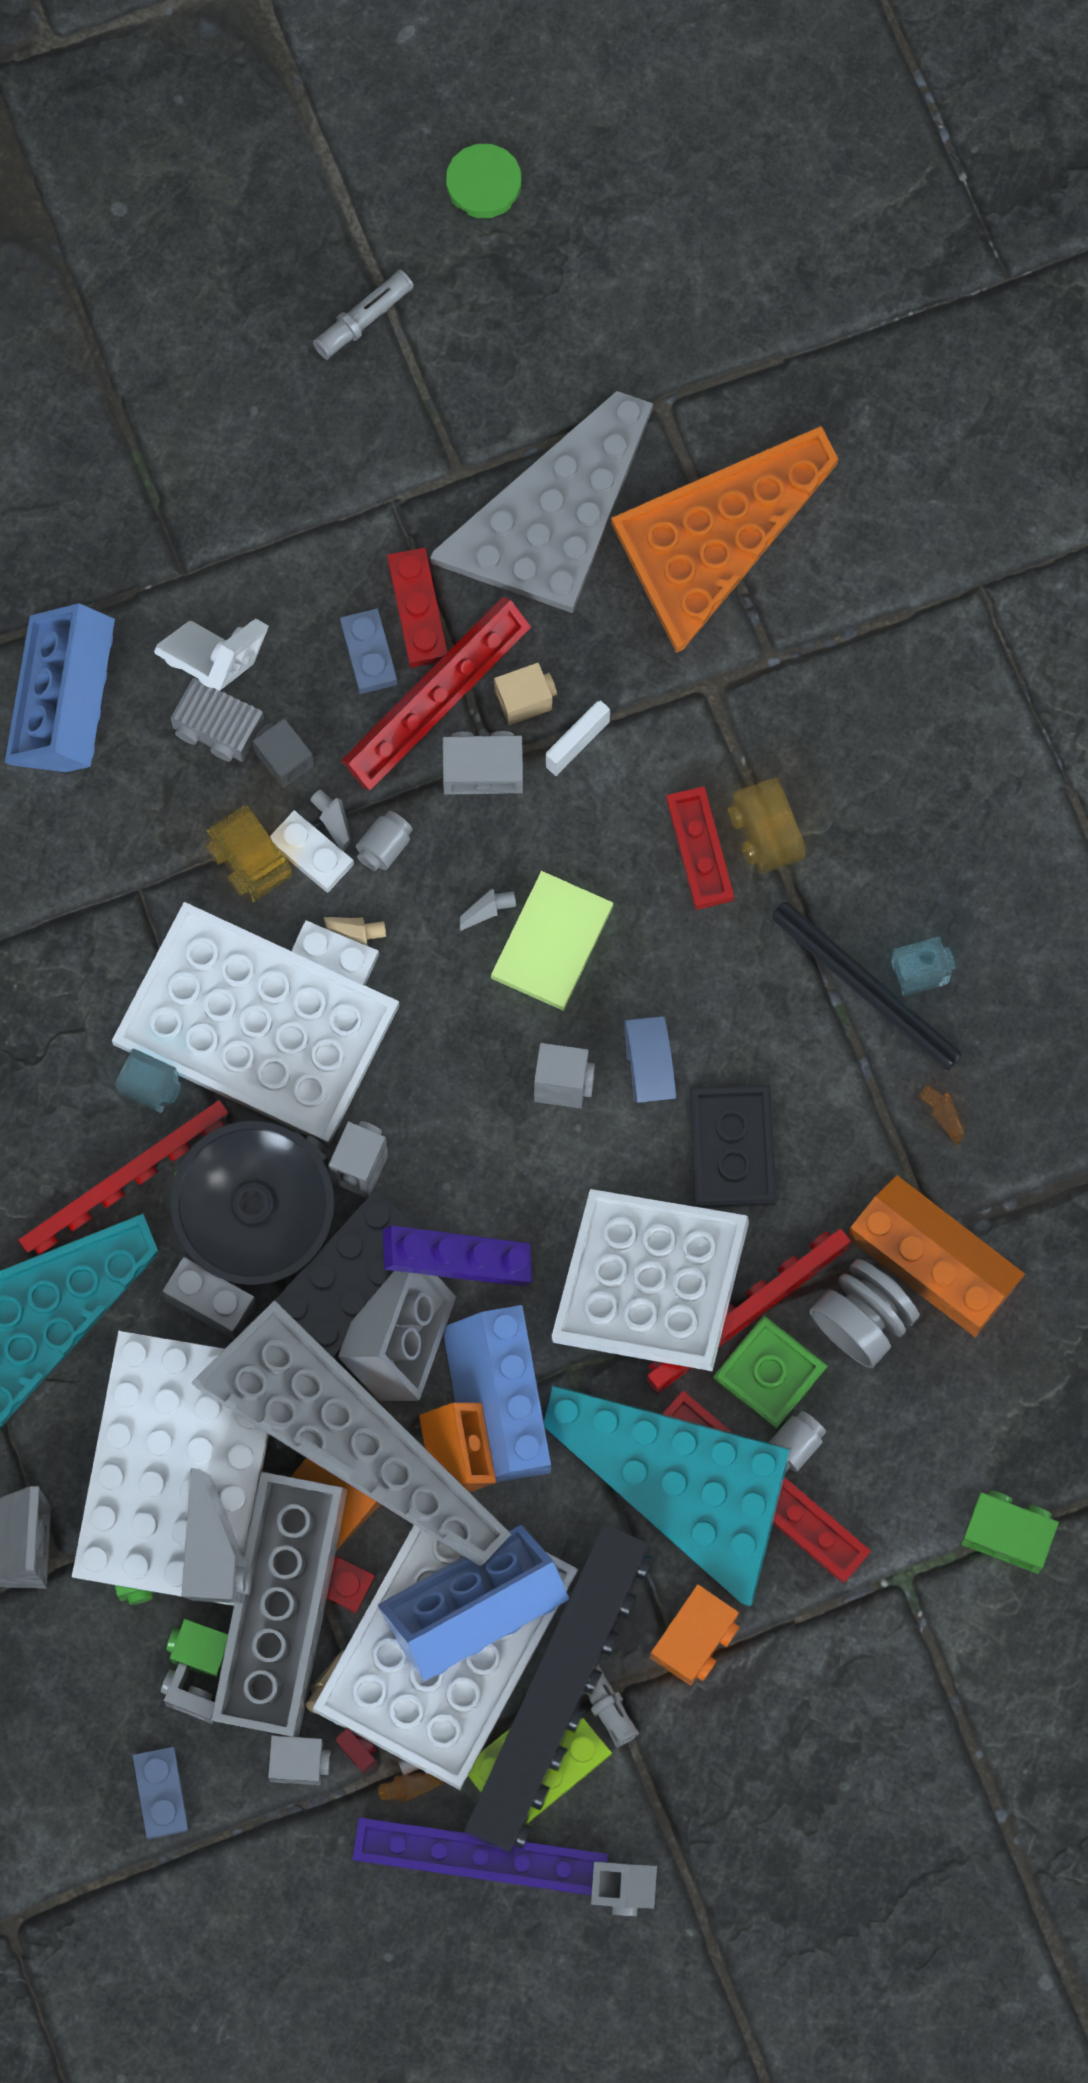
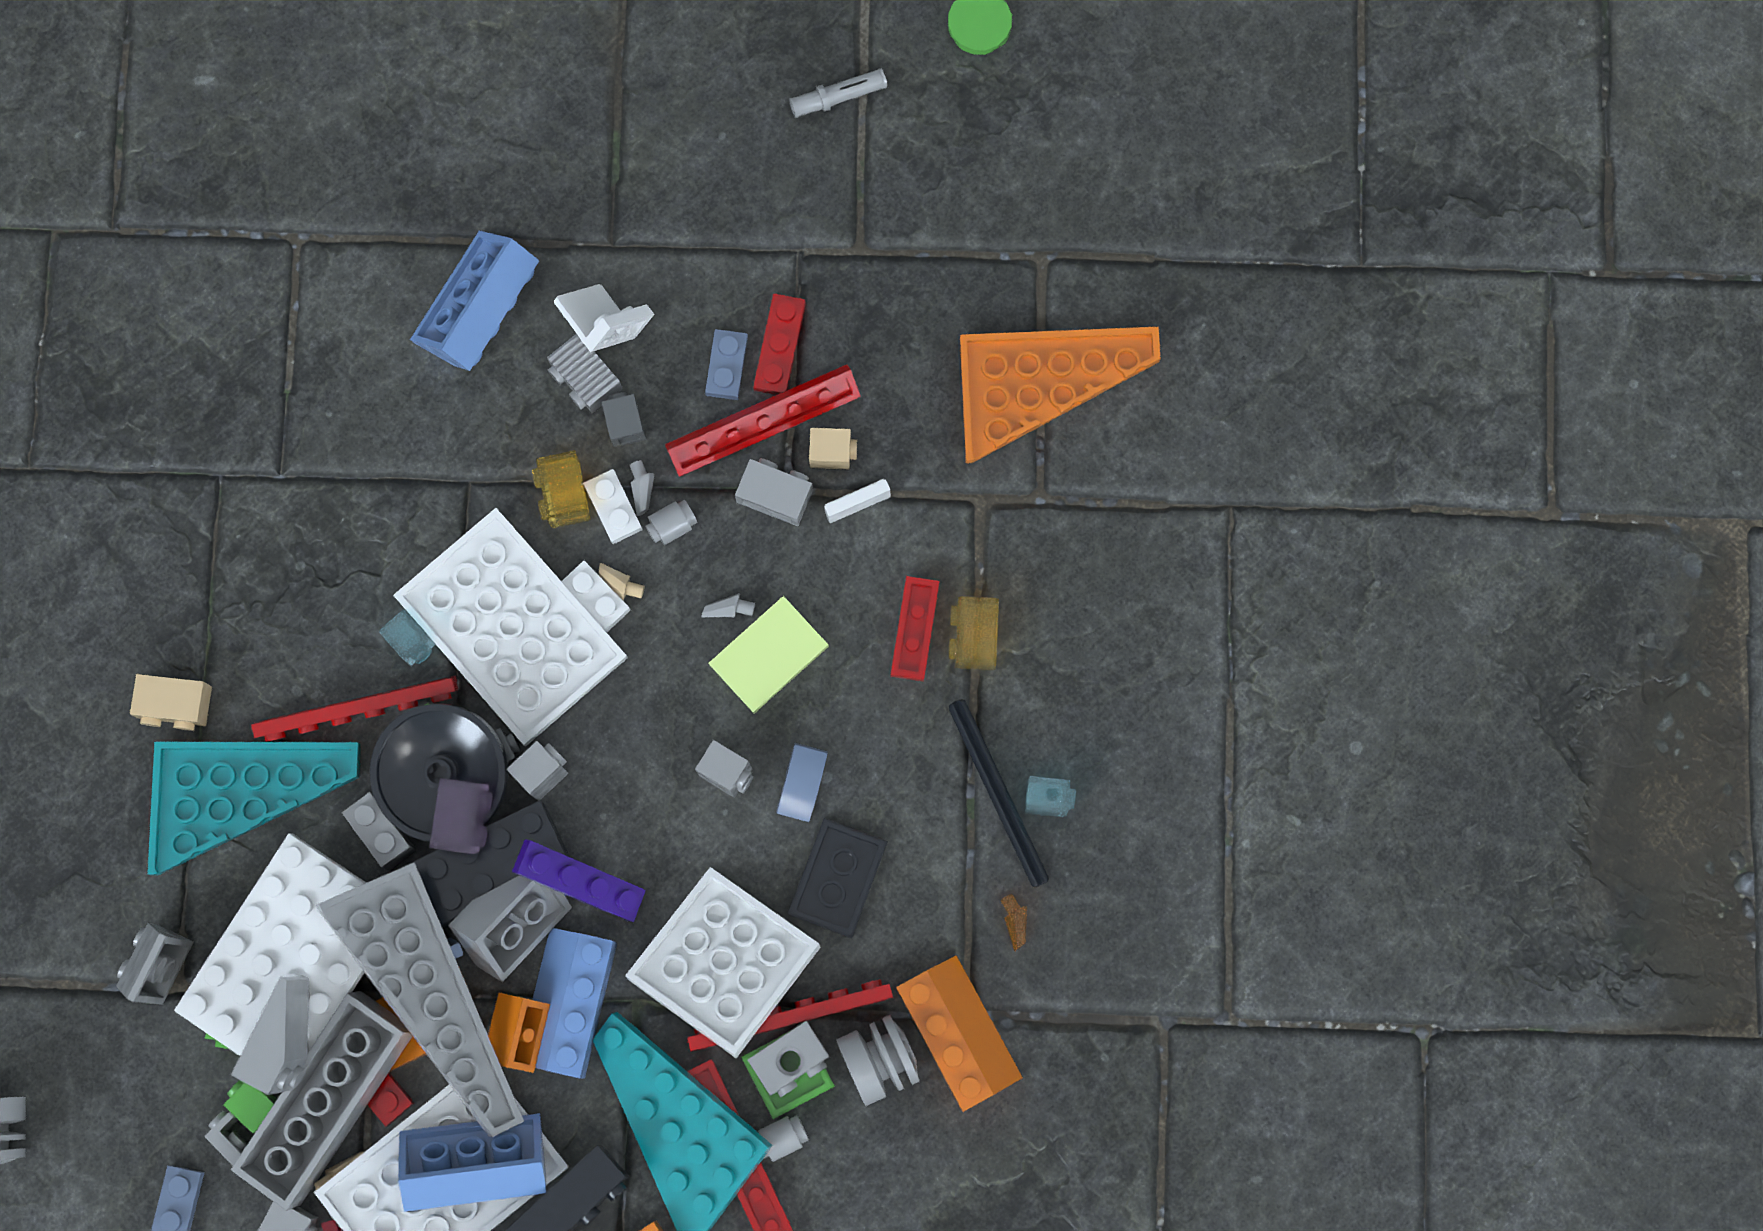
camera: 25 degrees right, 5 degrees up
(300, 1234) = (460, 816): none -> clear purple brick
(552, 518) = (915, 315): light grey wing -> none
(776, 1329) = (768, 1061): none -> light grey brick

